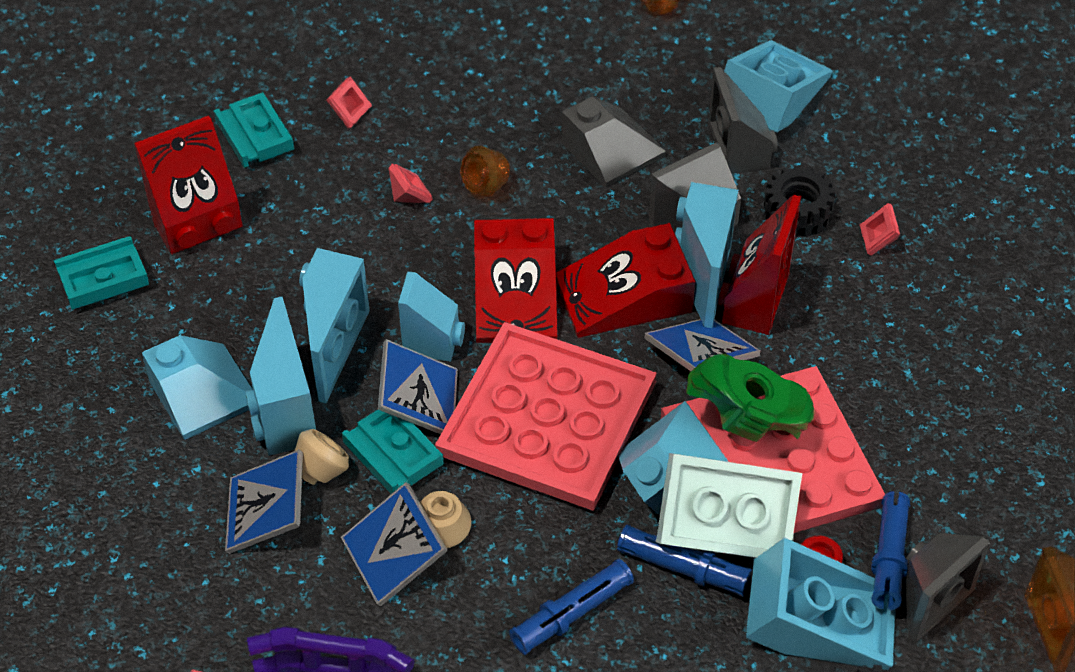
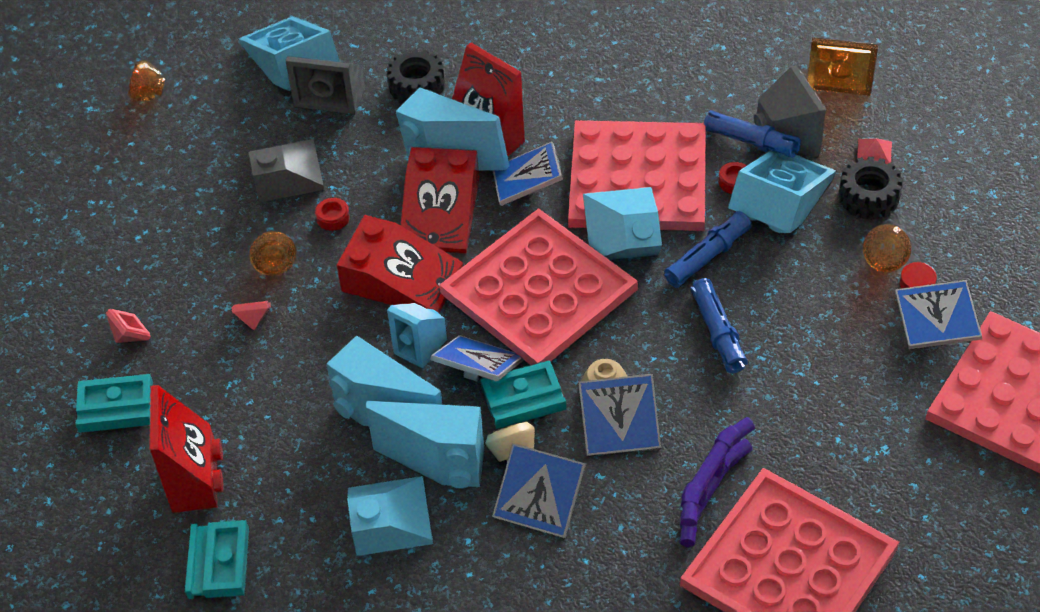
camera: 65 degrees left, 0 degrees up
(570, 204) = (332, 214): none -> red tile
(673, 181) = (385, 127): dark grey slope -> none
(726, 505) = (691, 198): light aqua plate -> none
(733, 389) = (620, 158): green piece -> none
(880, 229) = (465, 35): coral slope -> none

